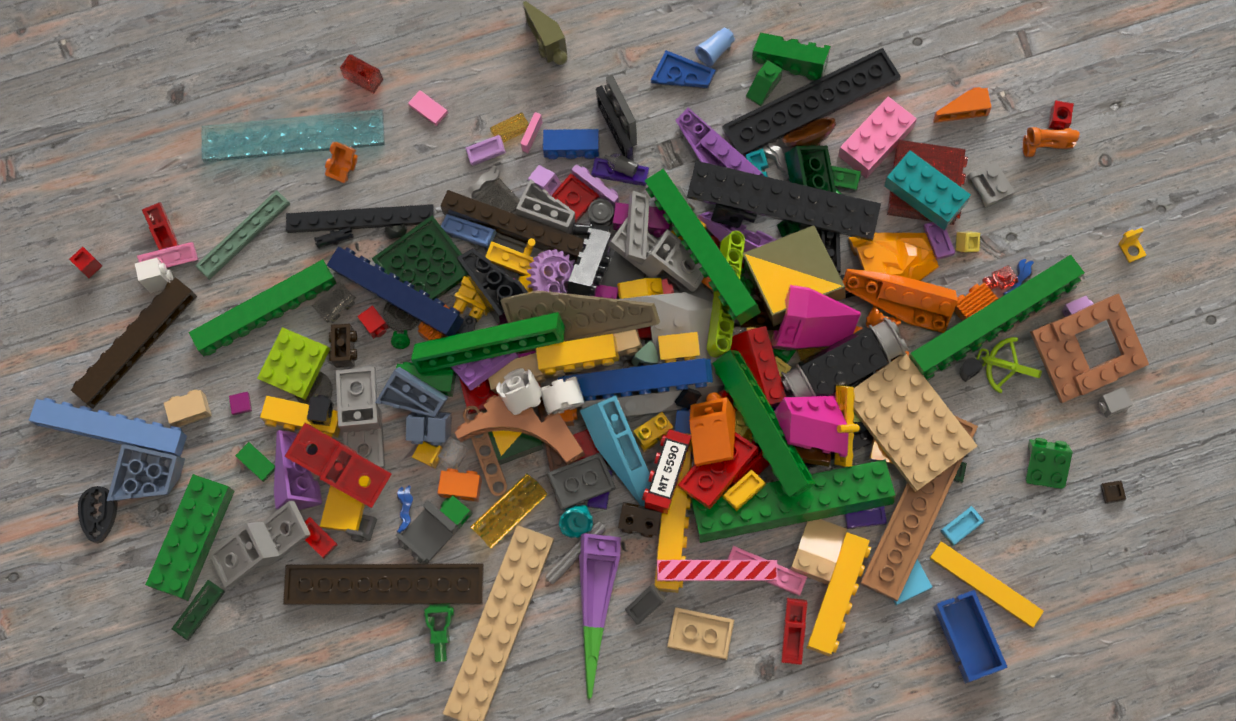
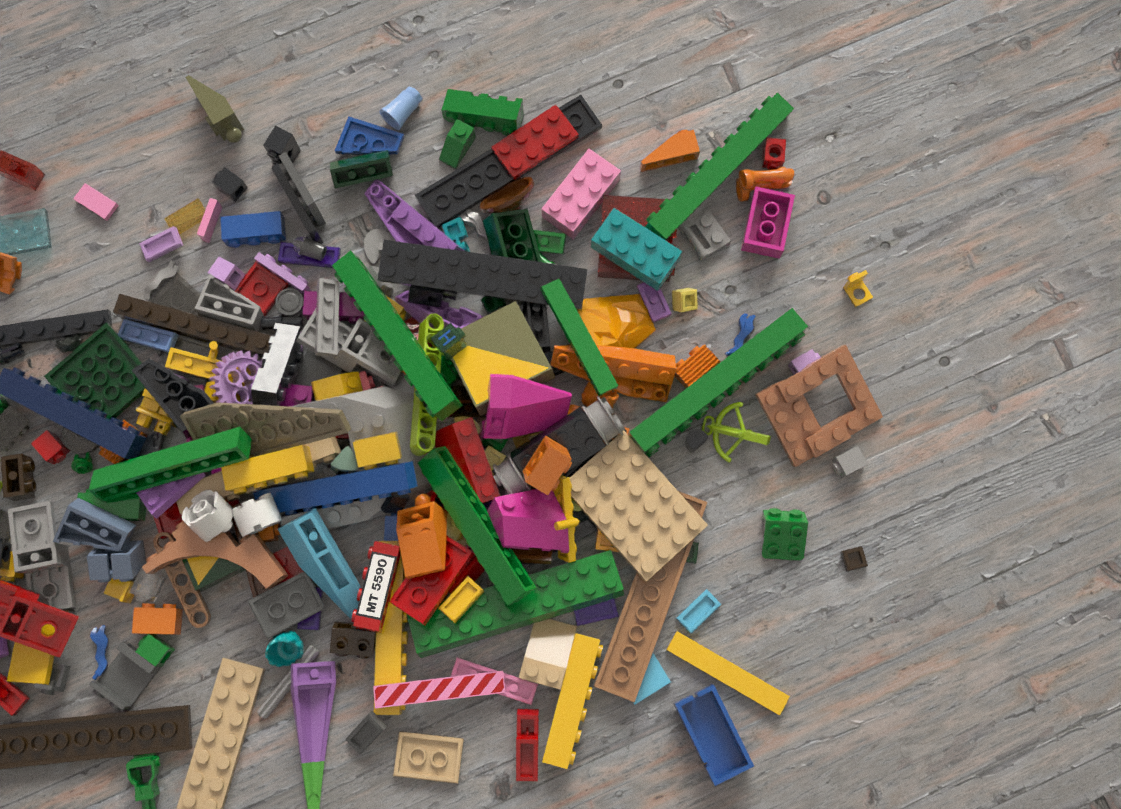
camera: 10 degrees left, 5 degrees up
(510, 512) = (214, 644): clear yellow fence -> none
(552, 102) = (229, 184): none -> black brick
(602, 68) = (280, 142): none -> black brick
(652, 429) = (357, 543): yellow hips -> none
(675, 98) = (361, 169): none -> dark green brick
(682, 168) = (374, 242): none -> light grey piece
(751, 255) = (449, 341): none -> clear green brick
(835, 373) = (547, 466): none -> orange brick
(837, 86) = (534, 142): none -> red plate
(870, 263) = (579, 337): none -> green tile
(1001, 278) = (723, 337): clear red plate -> none
(1010, 123) = (719, 167): none -> green brick
(1051, 177) = (767, 222): none -> dark pink brick

